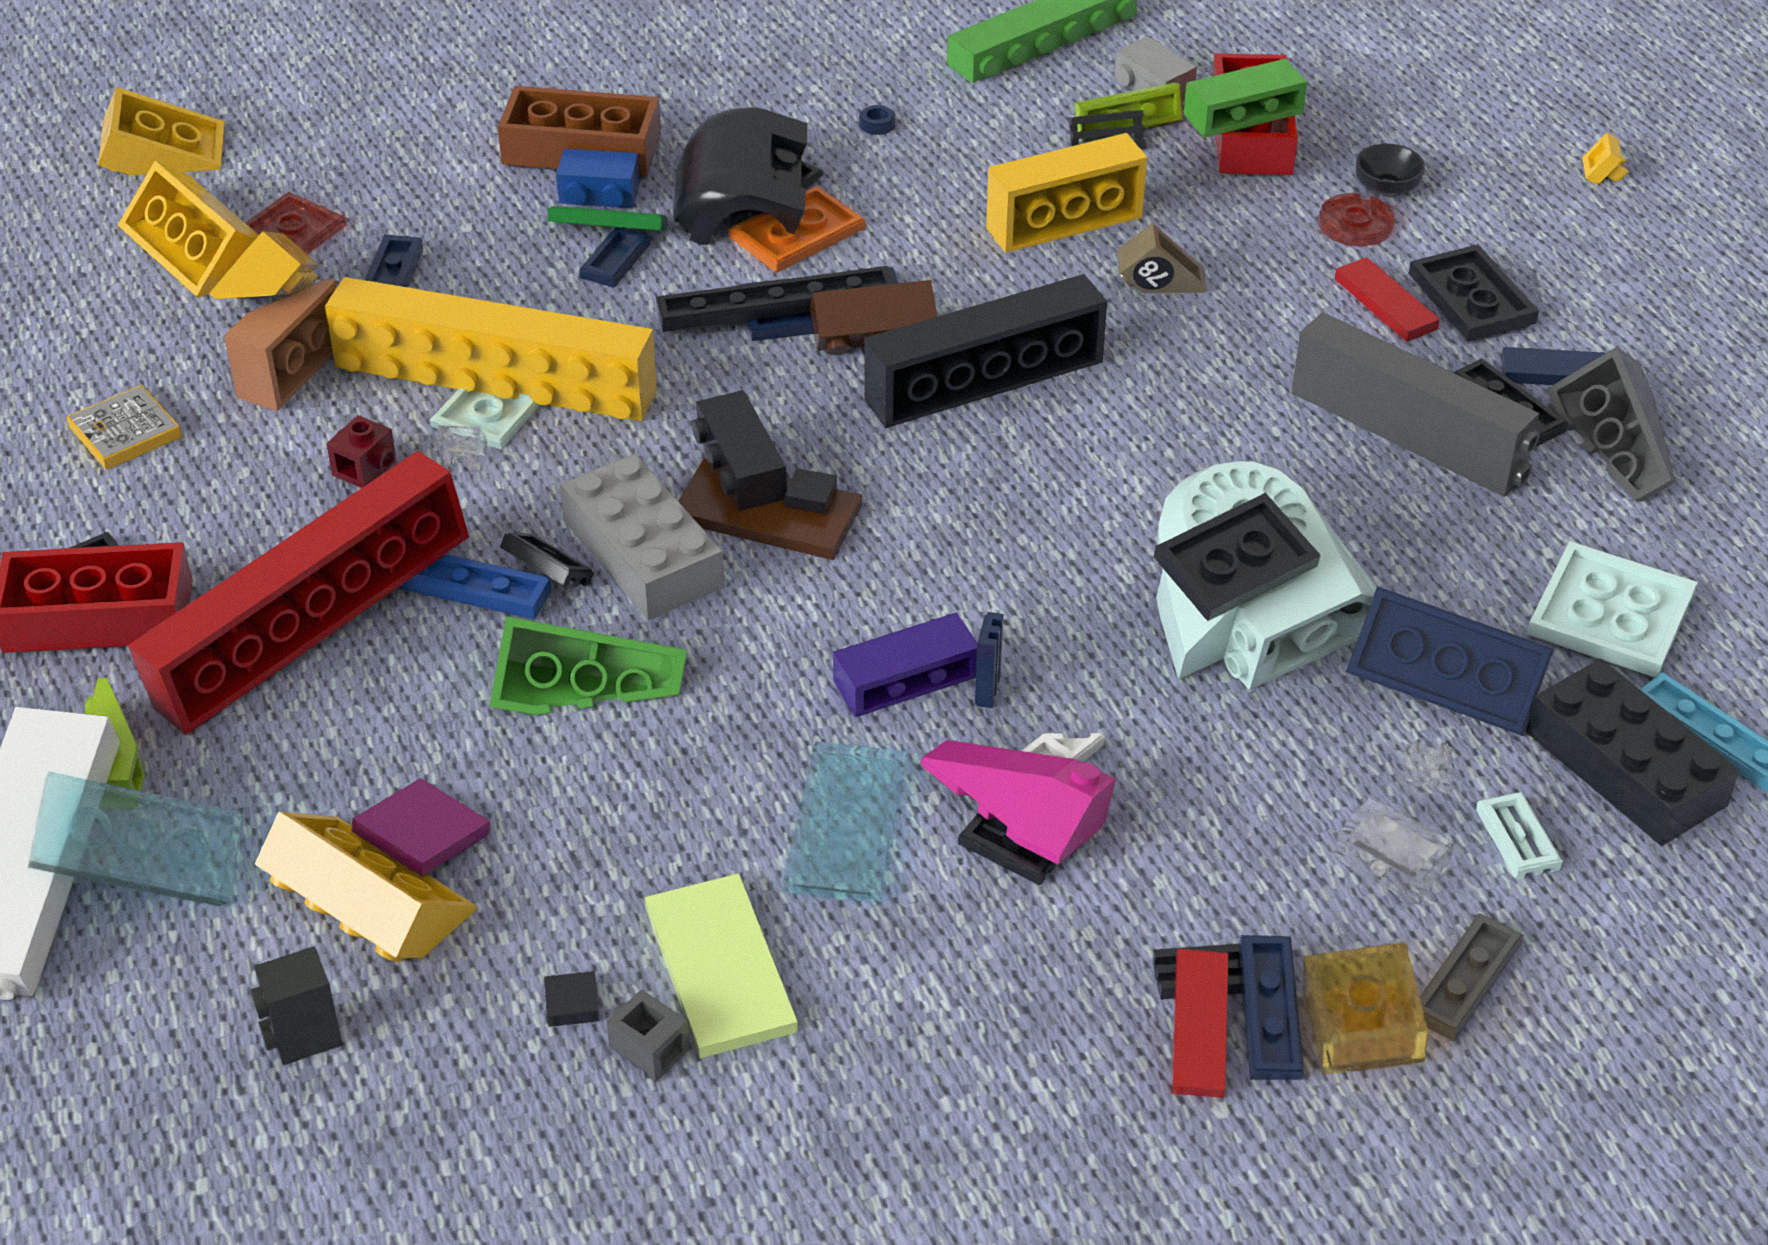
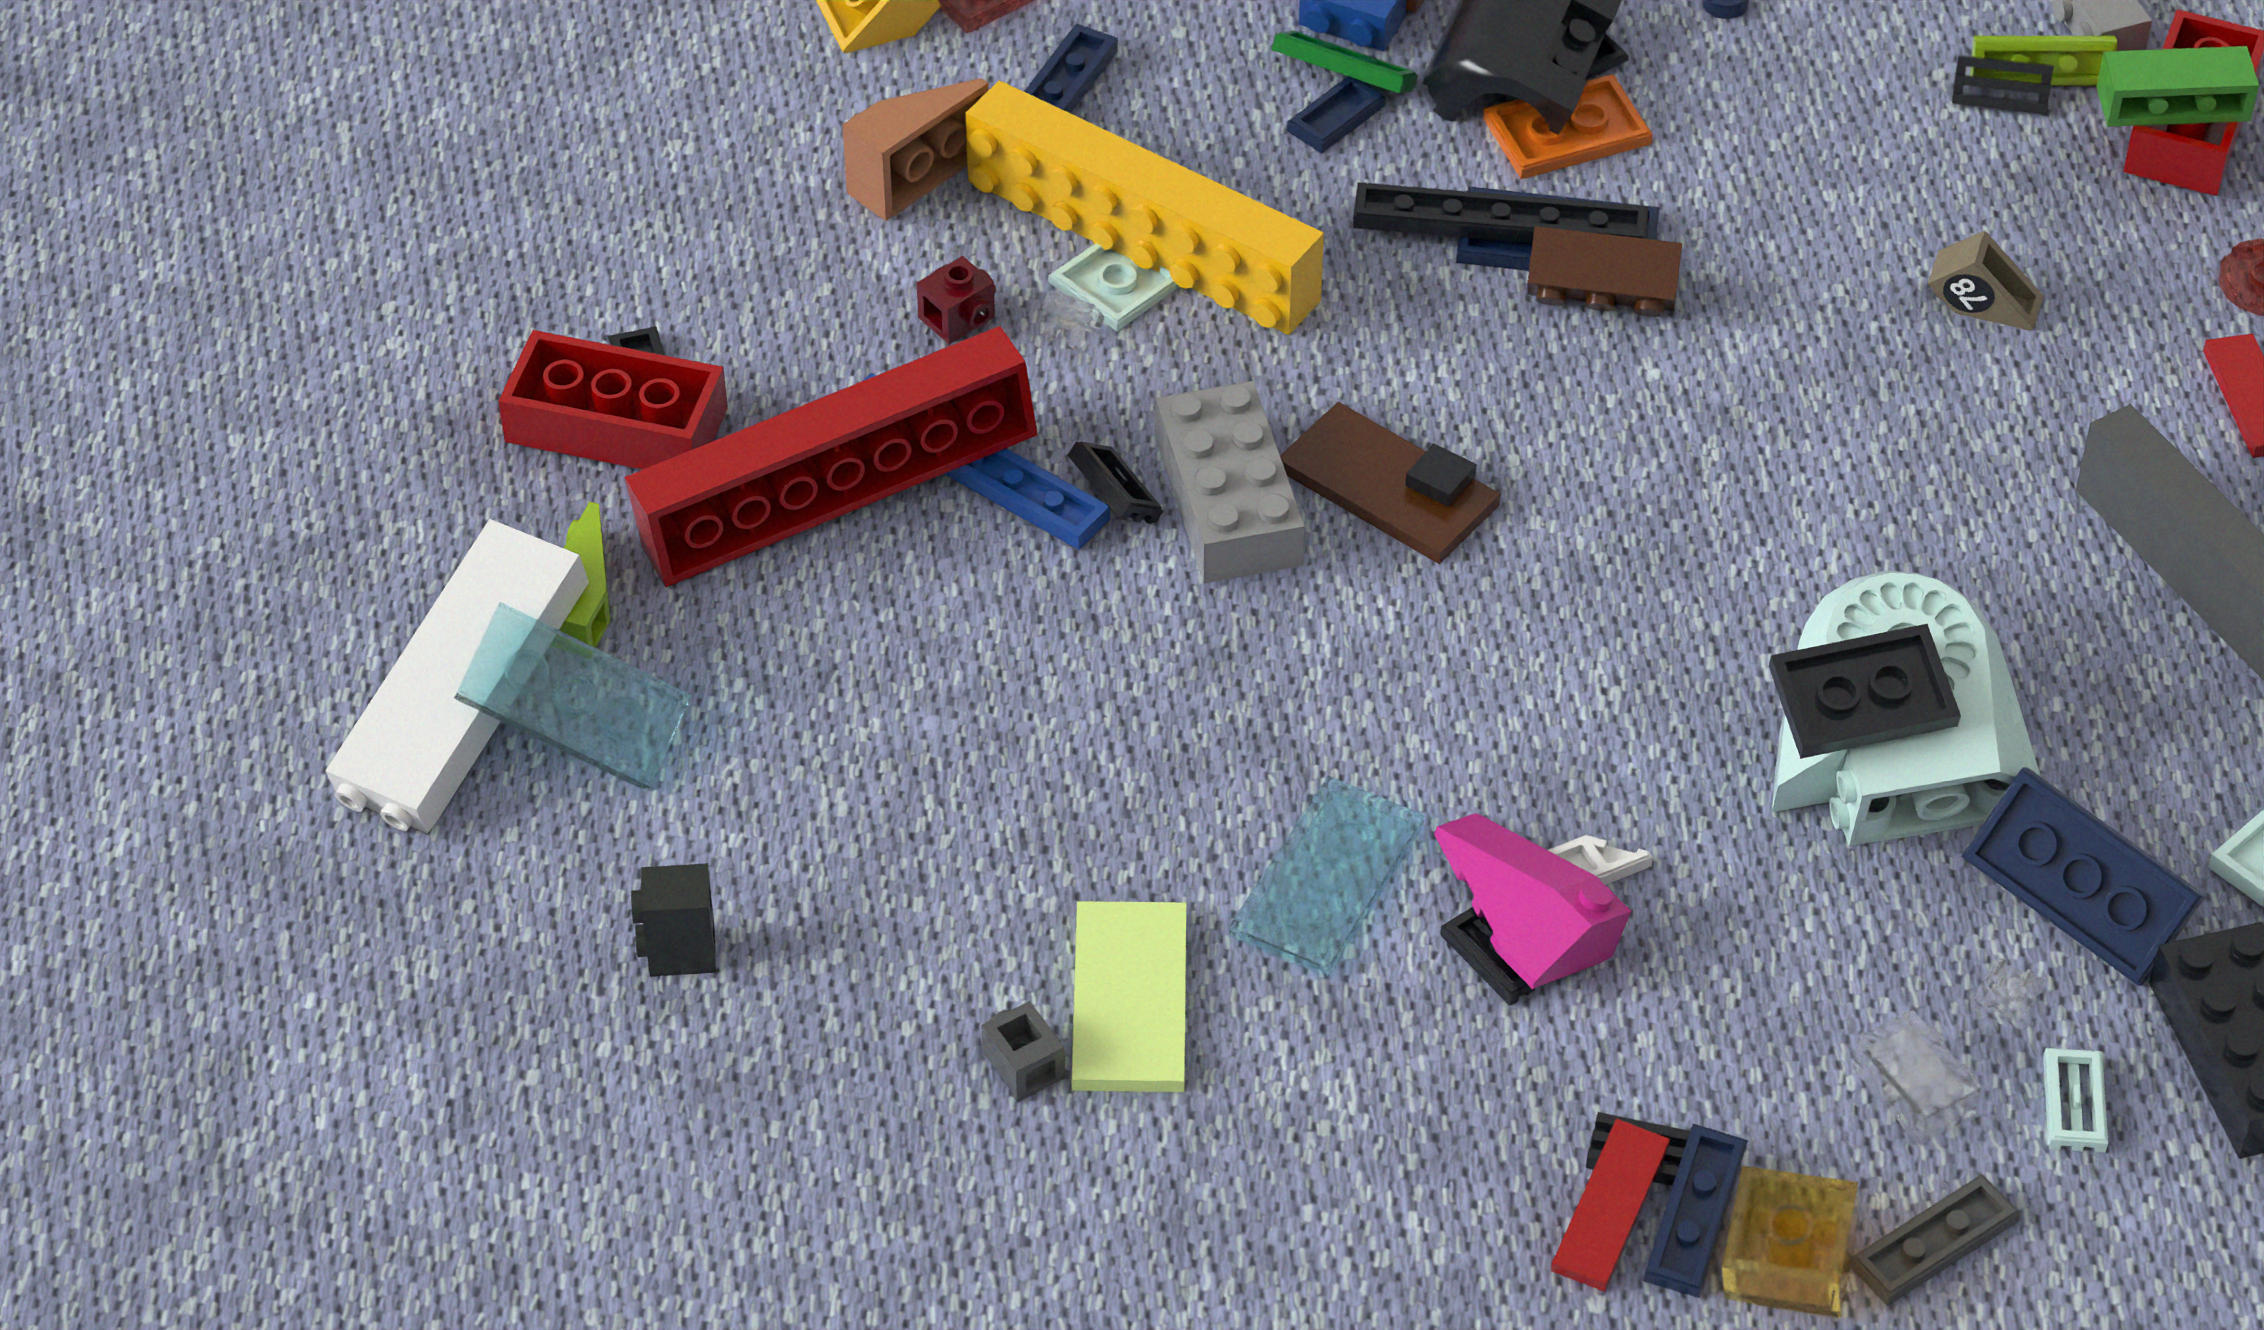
camera: 20 degrees right, 5 degrees up
(124, 427) = (712, 200): tile -> none
(268, 268) = (922, 50): yellow slope -> none
(360, 885) = (790, 805): slope -> none
(420, 826) = (872, 758): magenta tile -> none
(565, 666) = (1092, 616): bright green wedge -> none
(571, 999) = (962, 989): black tile -> none
(740, 450) = (1375, 405): black brick -> none
(905, 664) = (1464, 713): dark purple brick -> none
(984, 350) = (1714, 348): black brick -> none
(989, 659) = (1552, 733): dark blue tile -> none
(1065, 192) = (1905, 160): yellow brick -> none

